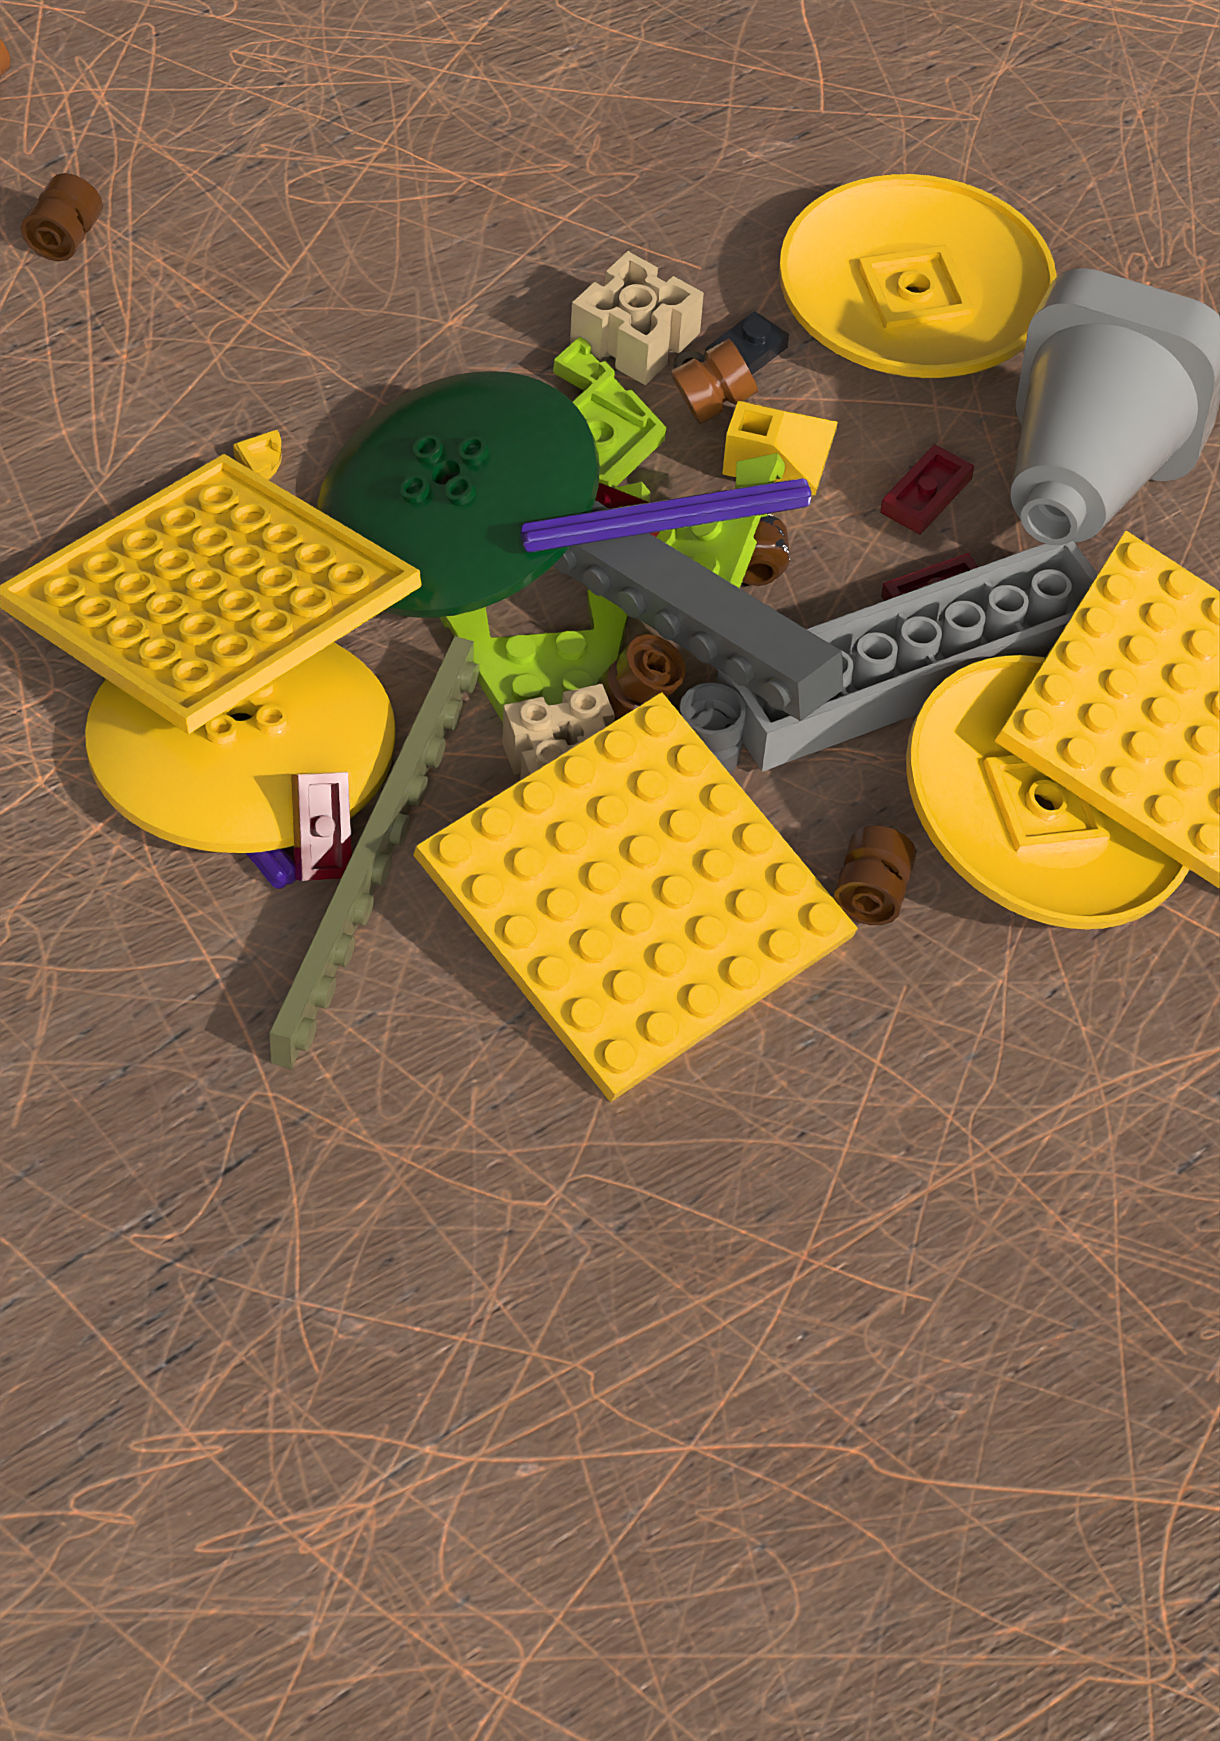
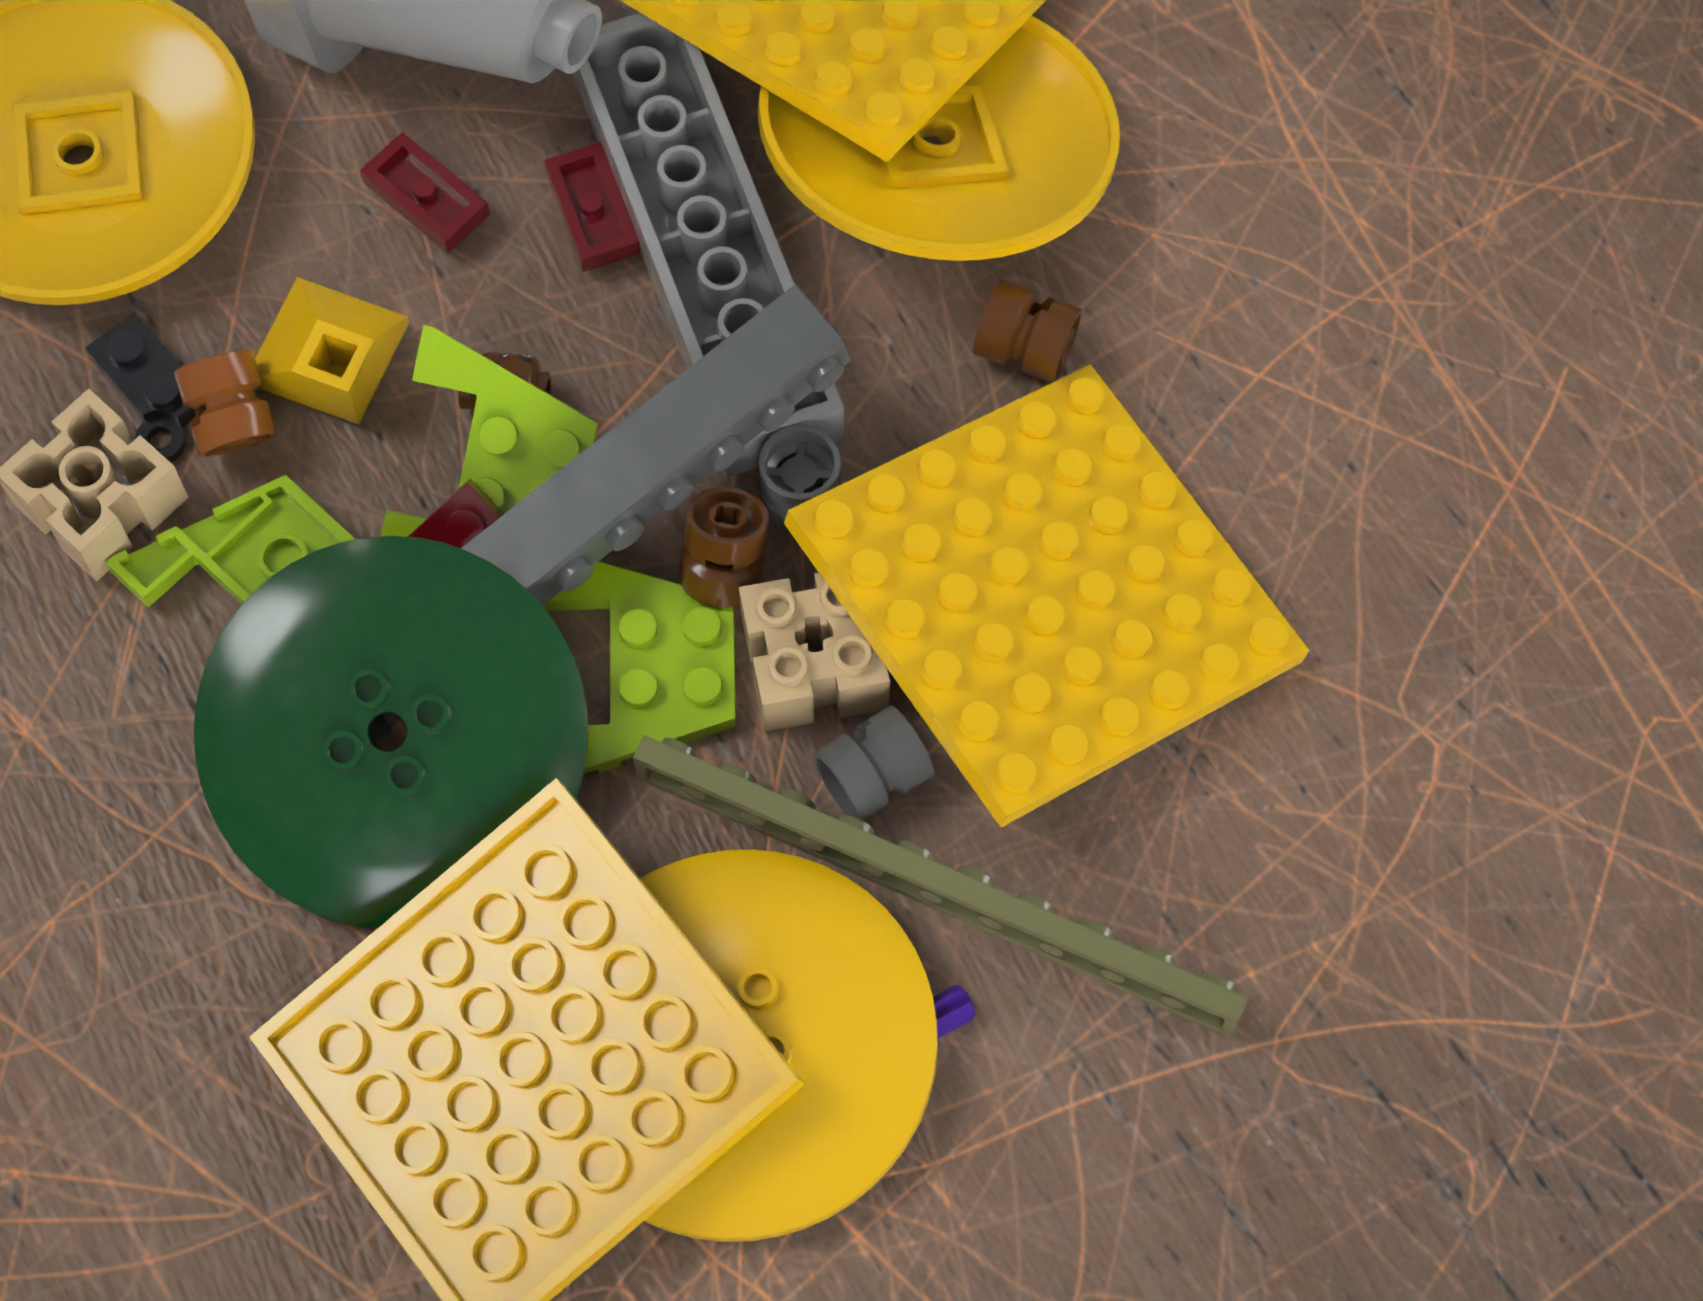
camera: 80 degrees left, 15 degrees up
(260, 453) = (244, 995): yellow tile -> none
(321, 825) = (921, 941): plate -> none
(462, 782) = (880, 760): none -> dark grey wheel
(665, 515) = (513, 470): dark purple axle -> none

